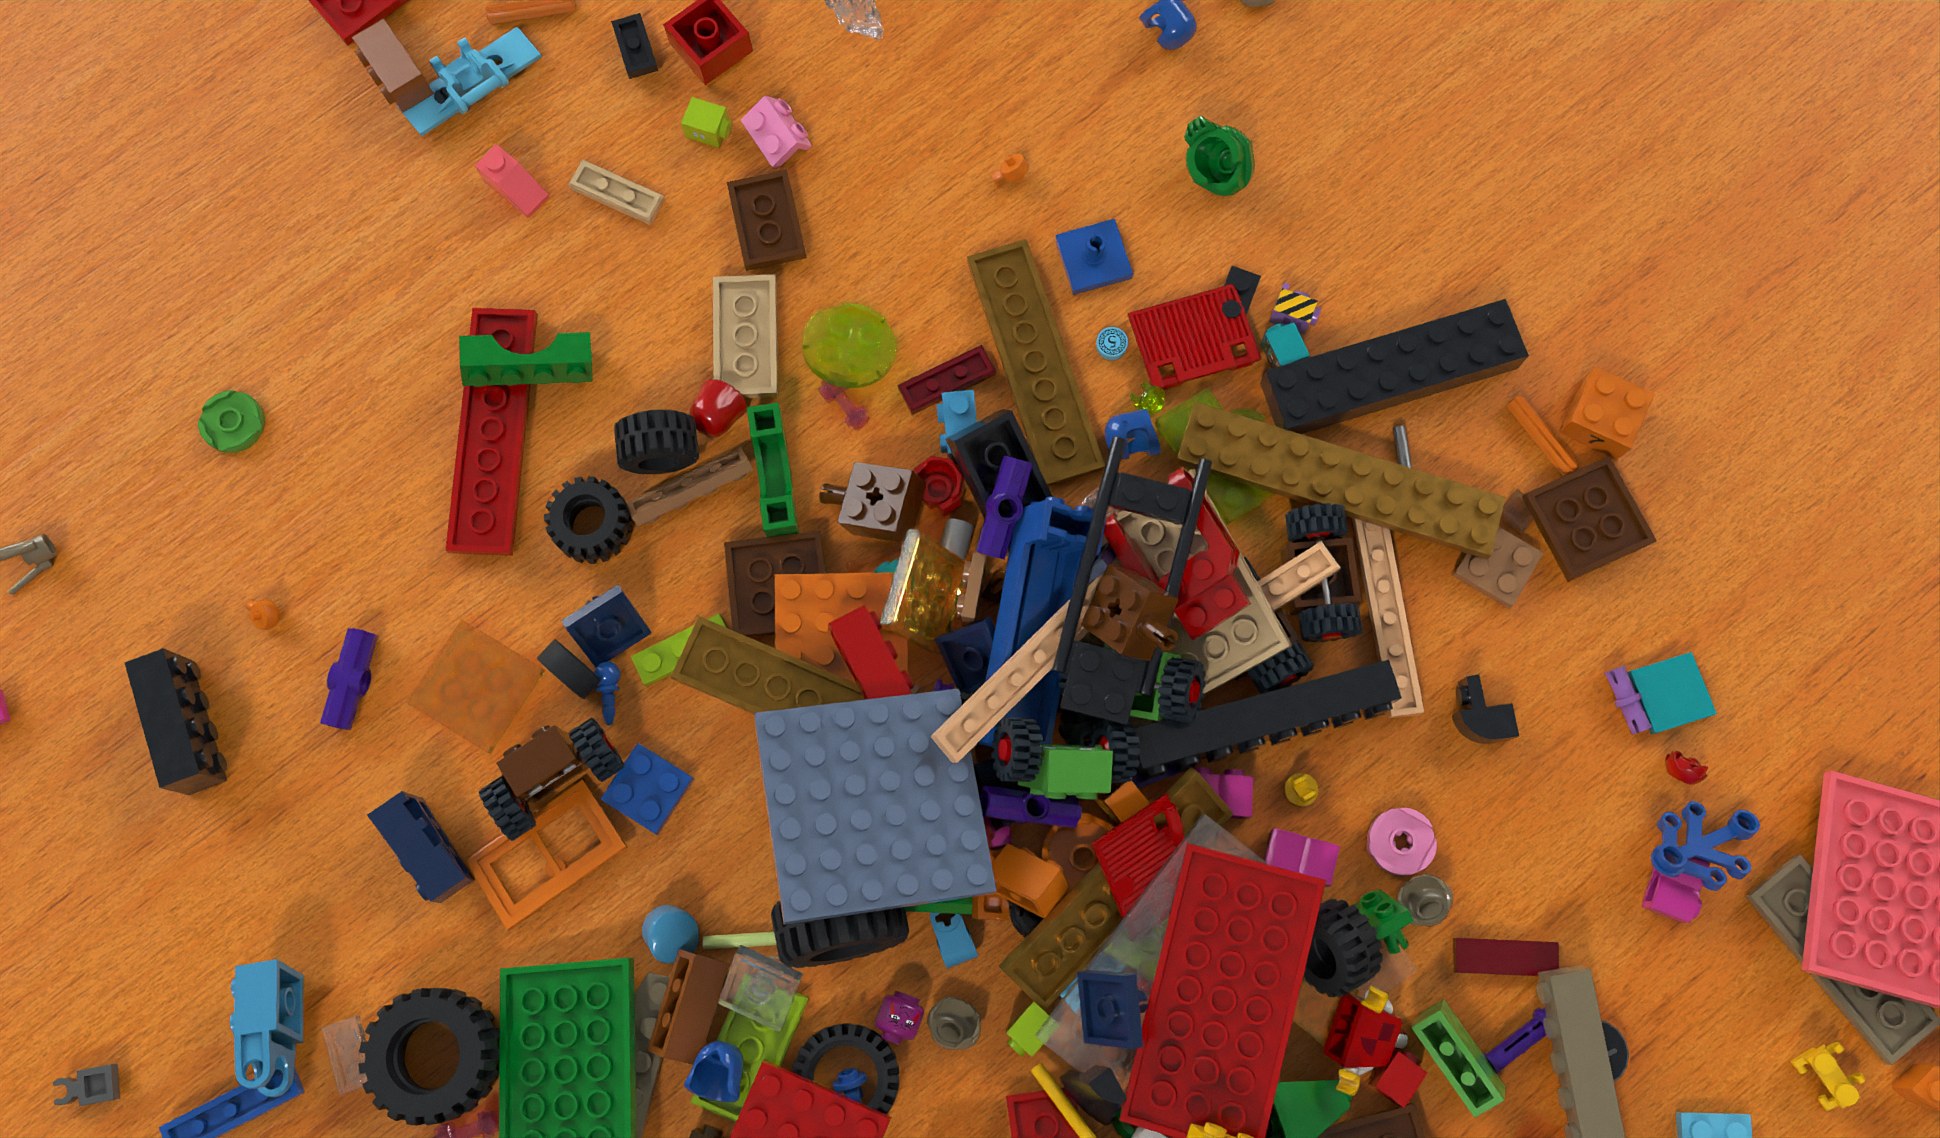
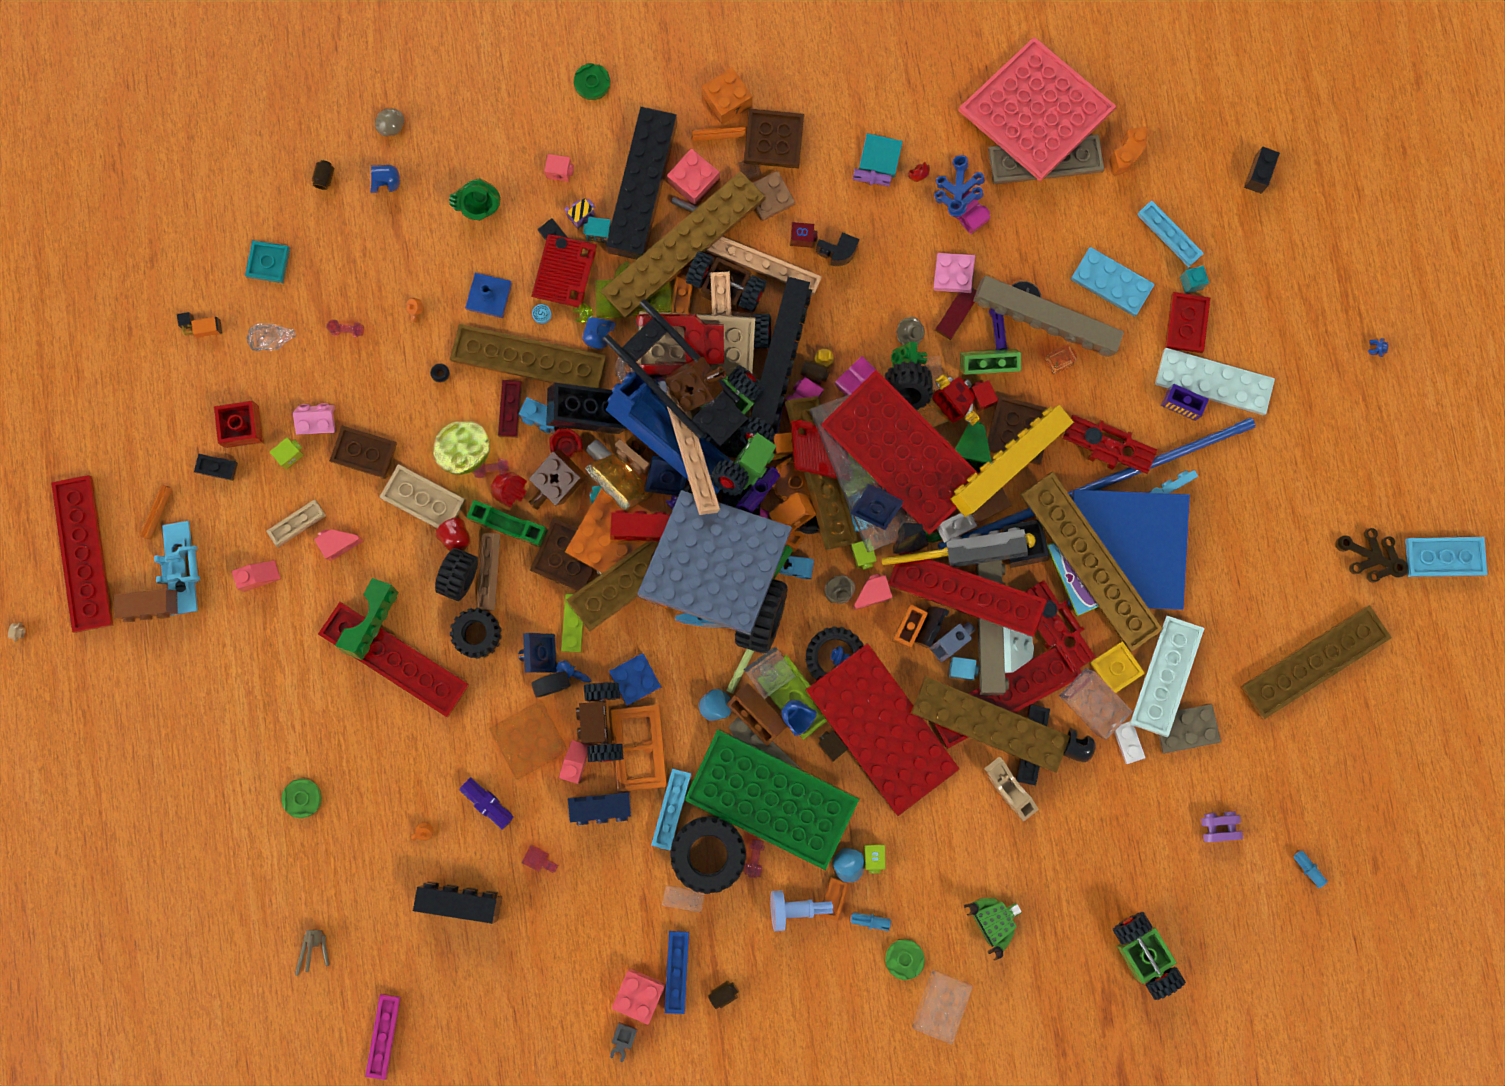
camera: 65 degrees left, 5 degrees up
(165, 1071) = (638, 996): none -> coral brick
(266, 1022) = (644, 928): dark azure brick -> none
(303, 800) = (537, 858): none -> clear pink plate
(467, 772) = (574, 762): none -> coral slope
(477, 957) = (671, 809): none -> medium azure plate
(615, 257) = (335, 543): none -> coral slope
(827, 443) = (508, 488): none -> red hair
(899, 1017) = (821, 614): magenta head -> none
(919, 85) = (336, 328): none -> clear pink bar
(941, 247) = (440, 367): none -> black plate
(980, 1080) = (874, 591): none -> coral slope
(996, 528) = (609, 424): dark purple piece -> none
(1261, 524) = (681, 295): none -> orange tile
(1270, 788) = (815, 372): none -> dark brown brick
(1339, 242) = (558, 168): none -> coral brick
(1419, 836) = (874, 336): bright pink plate -> none
(1451, 436) = (693, 177): none -> coral brick
(1470, 647) = (803, 235): none -> dark red brick
(1497, 215) = (592, 81): none -> green tile
(1563, 916) = (954, 272): none -> bright pink plate
(1831, 1075) = (1093, 199): yellow piece -> none

